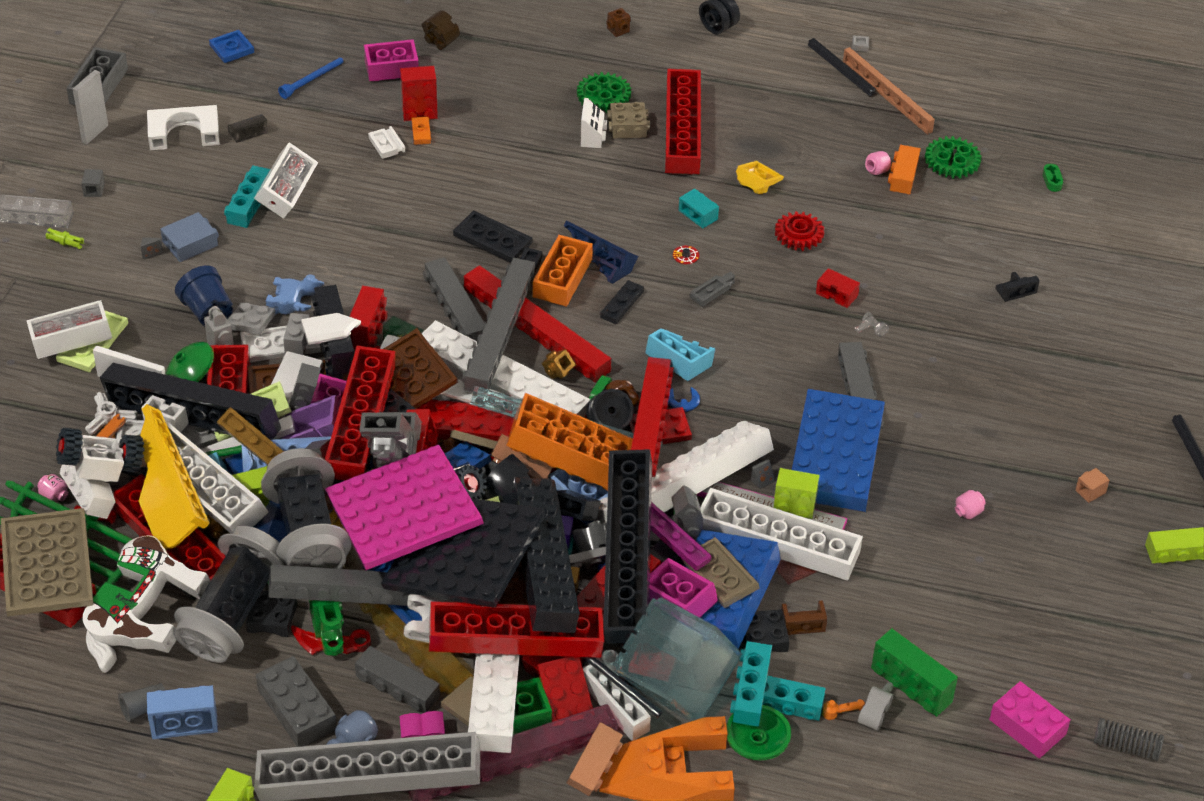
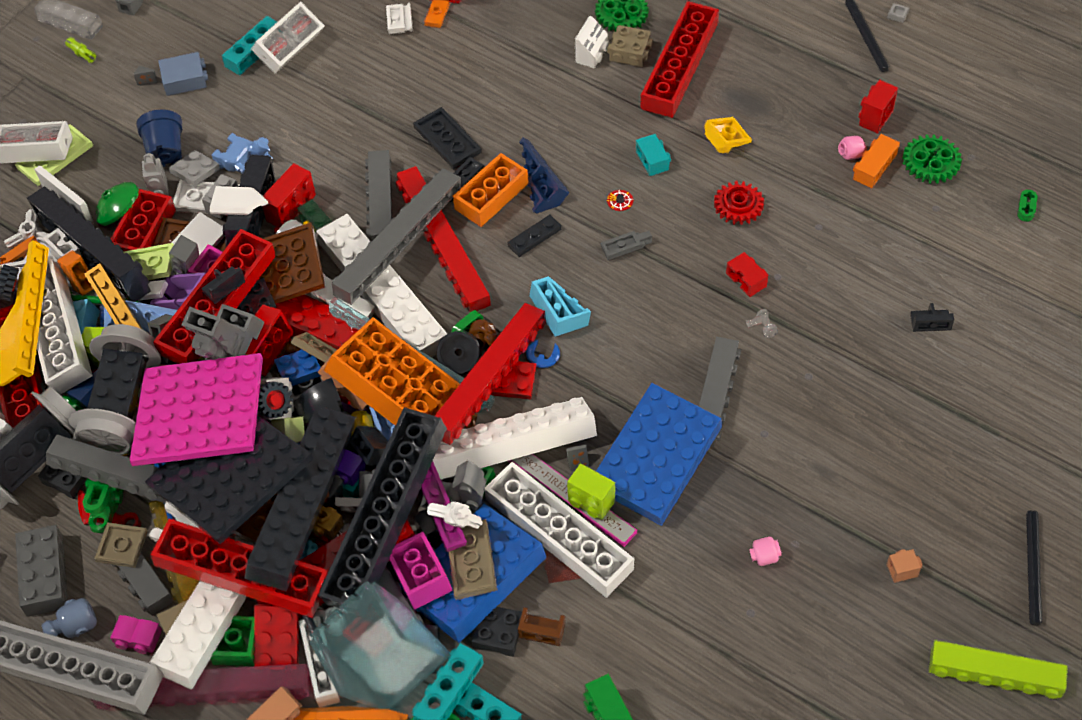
camera: 25 degrees right, 10 degrees up
(195, 428) = (75, 270): none -> orange brick
(369, 394) = (223, 284): none -> black panel
(370, 655) = (121, 545): none -> dark tan tile
(558, 364) = (445, 287): pearl gold brick -> none
(695, 533) = (455, 514): none -> white bush
(885, 122) = (877, 106): none -> red brick
(889, 91) = (901, 72): nougat plate -> none

